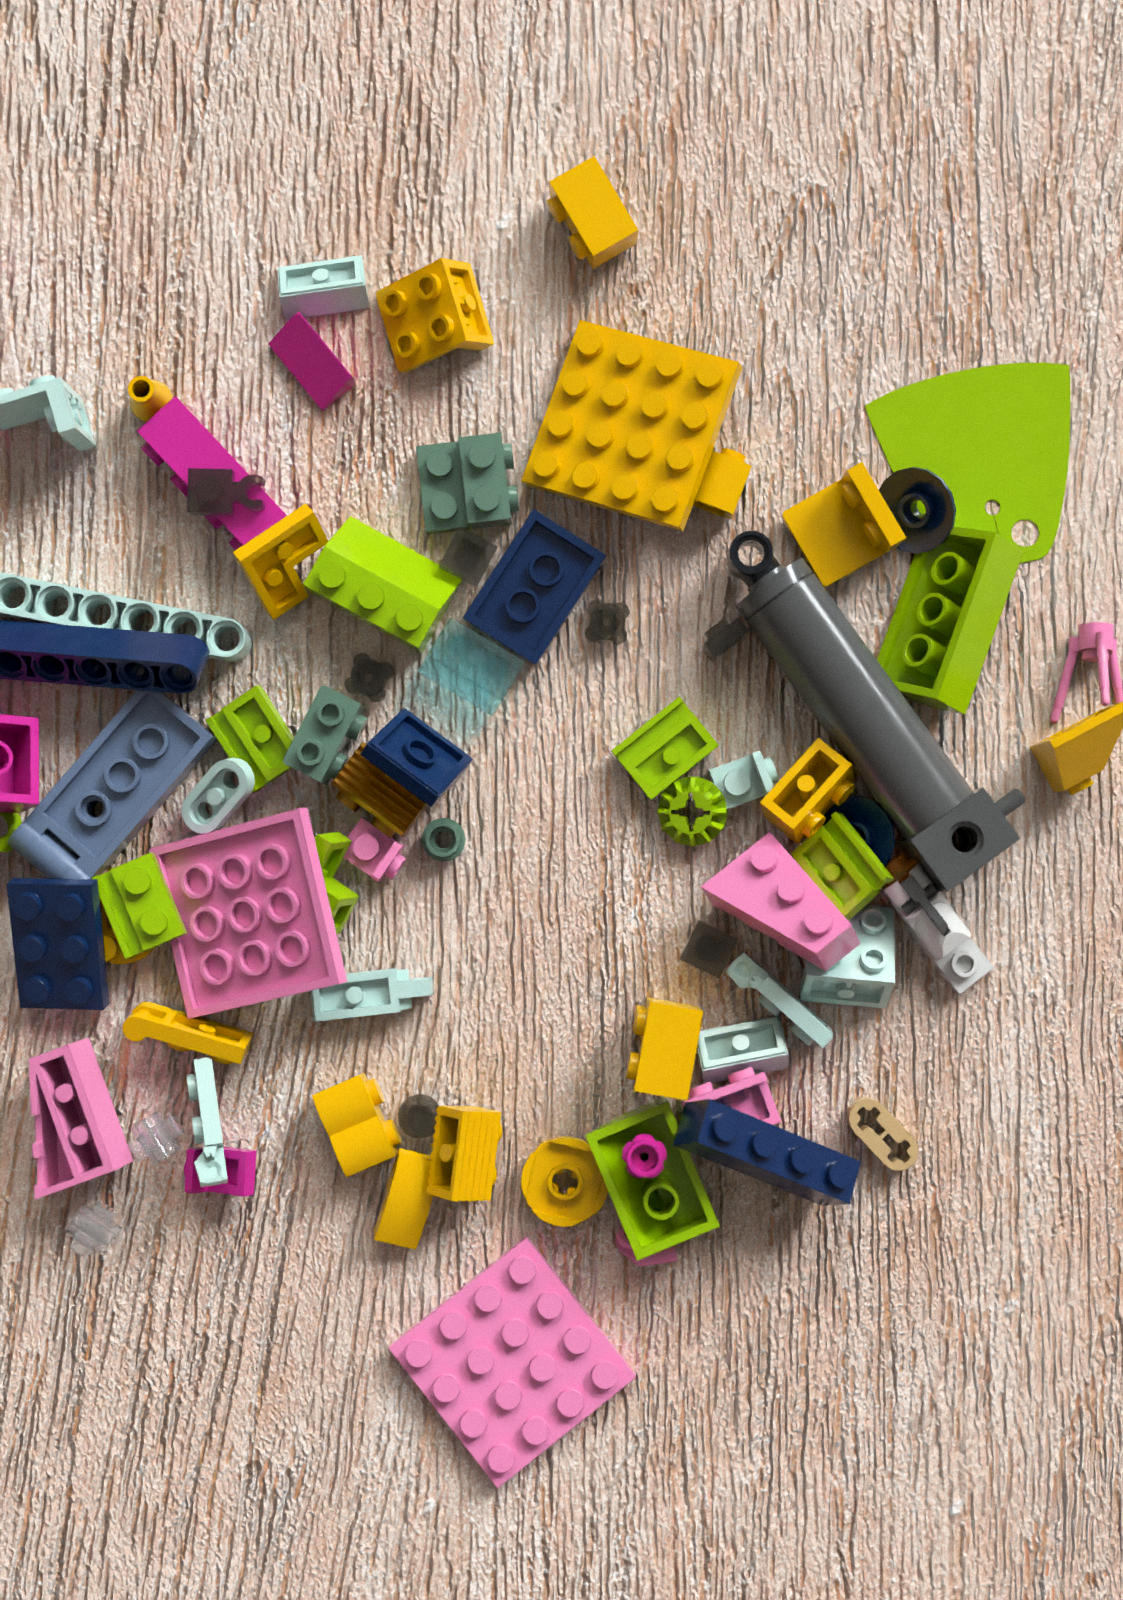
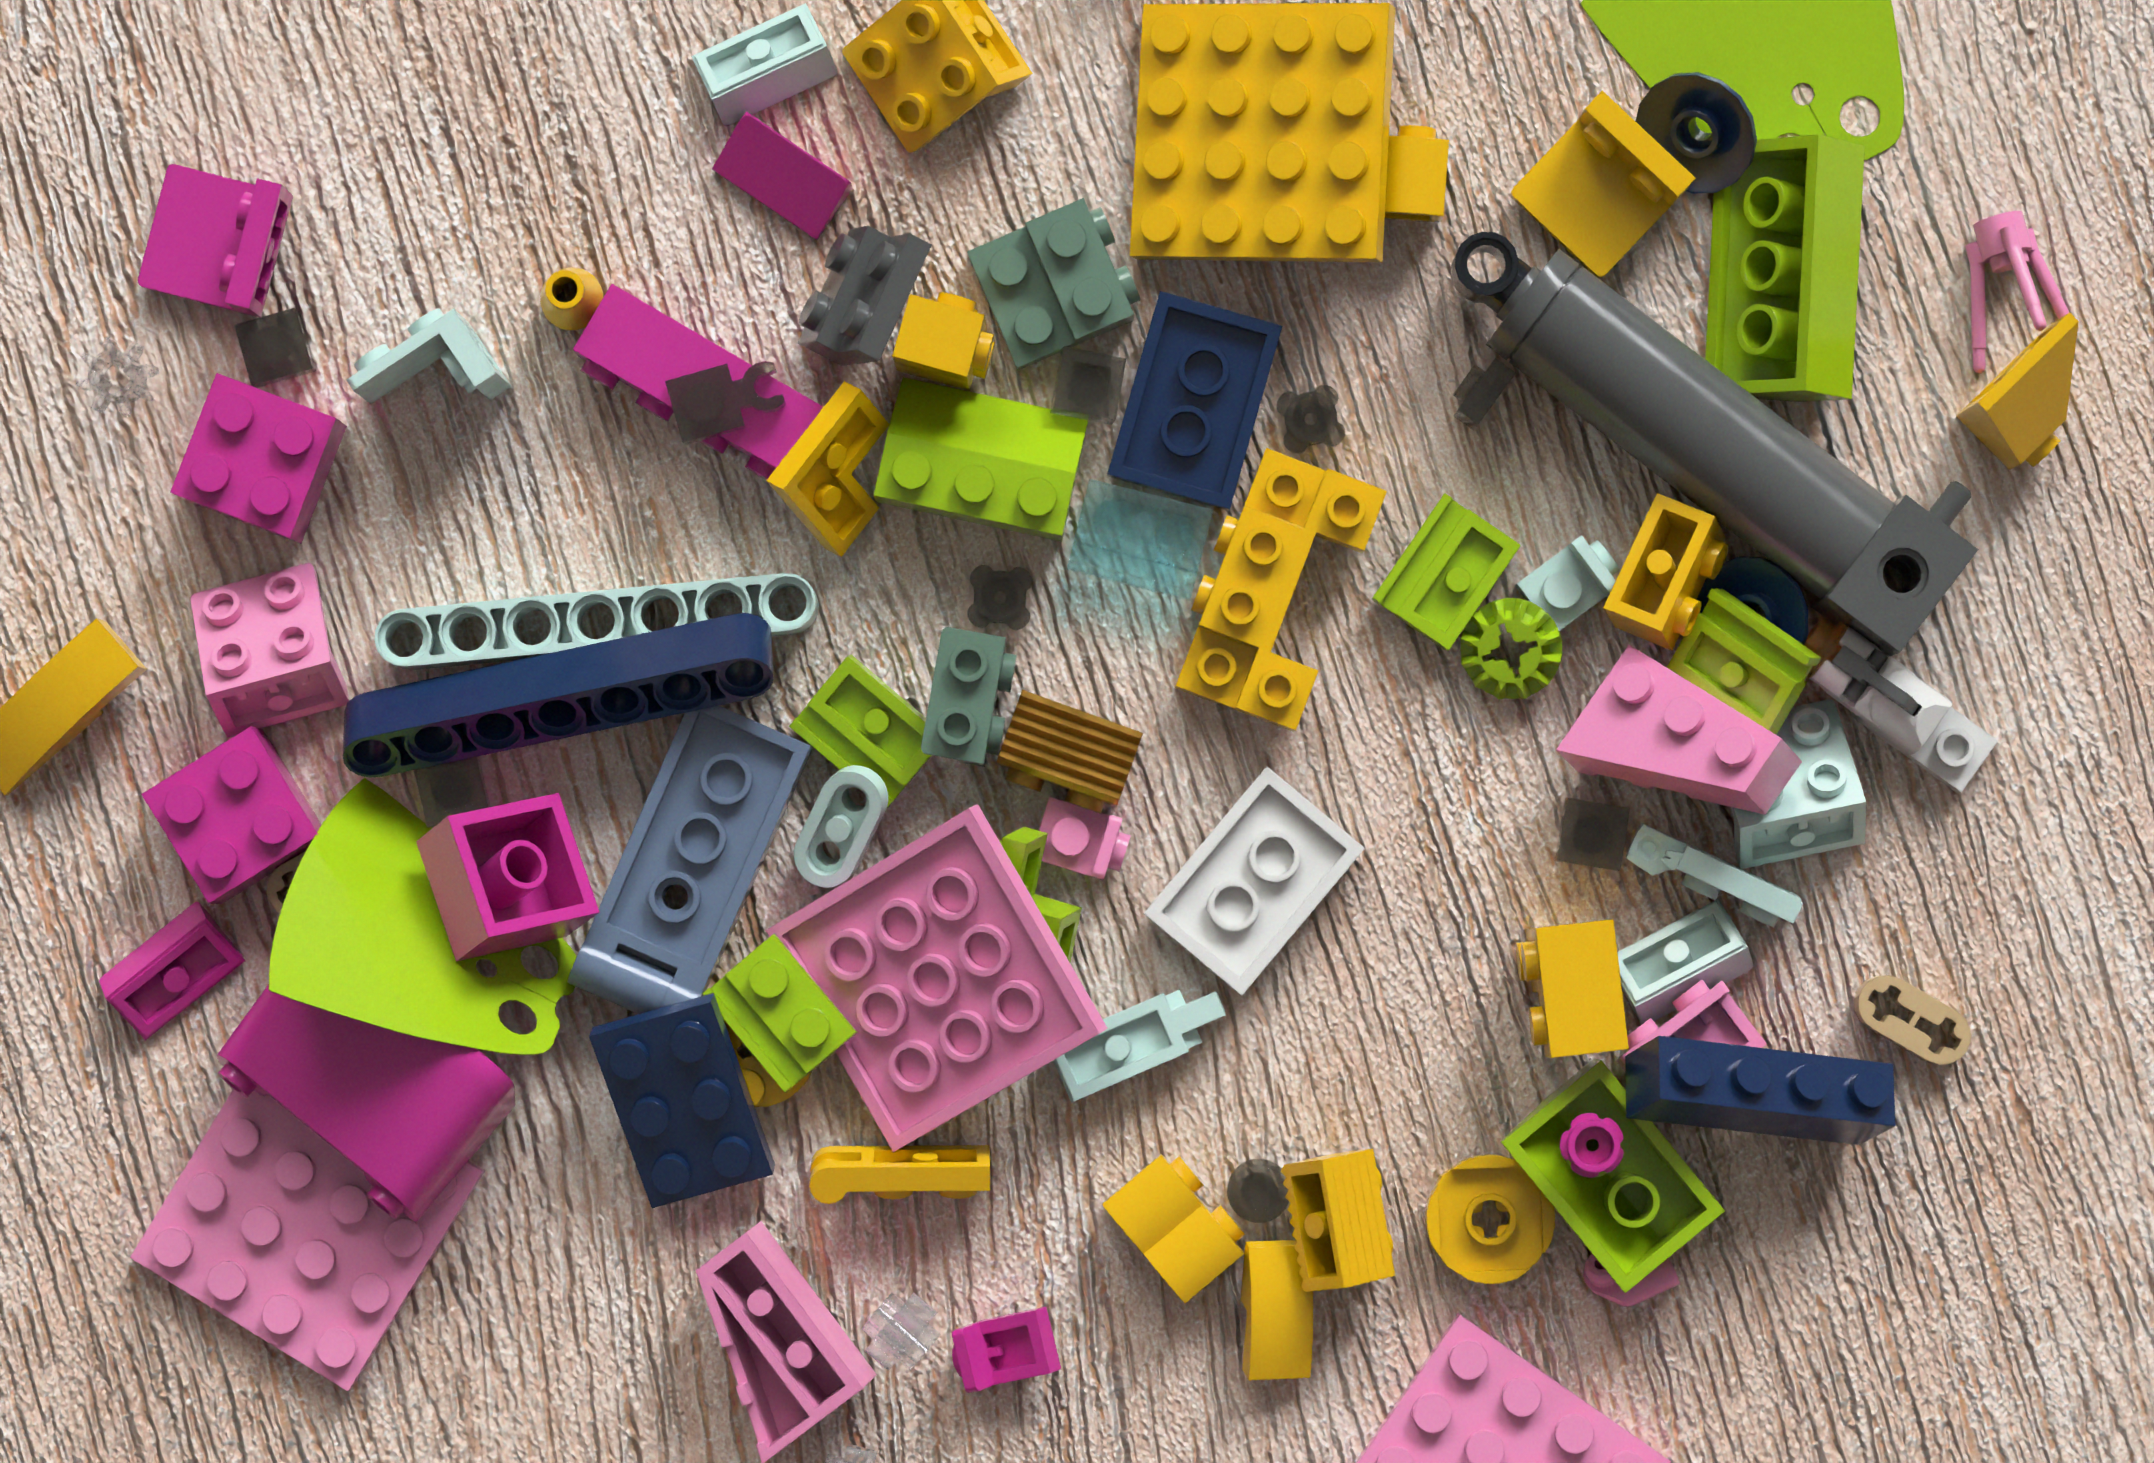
camera: 20 degrees left, 0 degrees up
(207, 1127) = (970, 1286): light aqua hinge -> none
(336, 452) = (861, 295): none -> dark grey plate
(379, 497) = (944, 341): none -> yellow brick
(416, 757) = (1105, 688): dark blue plate -> none
(429, 839) = (1179, 773): sand green plate -> none
(477, 912) = (1254, 880): none -> white plate
(538, 718) = (1260, 569): none -> yellow bracket

